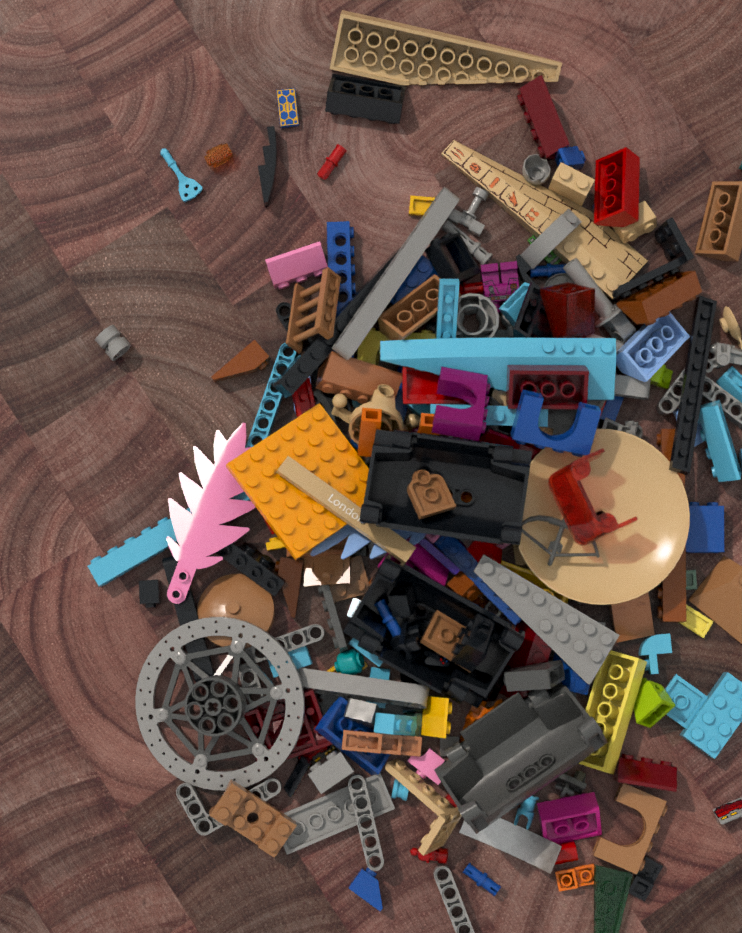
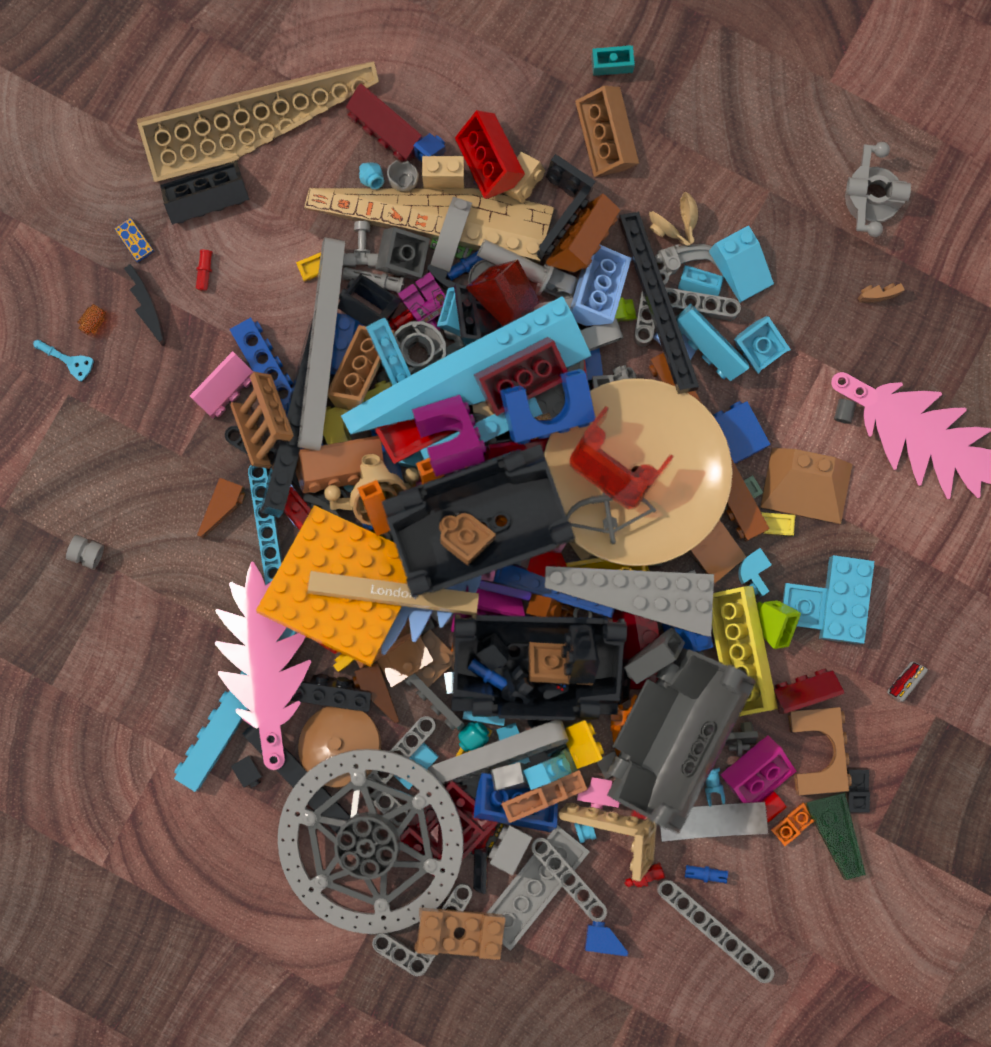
camera: 30 degrees left, 0 degrees up
(502, 233) = (402, 253): none -> dark grey brick
(510, 155) = (371, 175): none -> medium azure rock

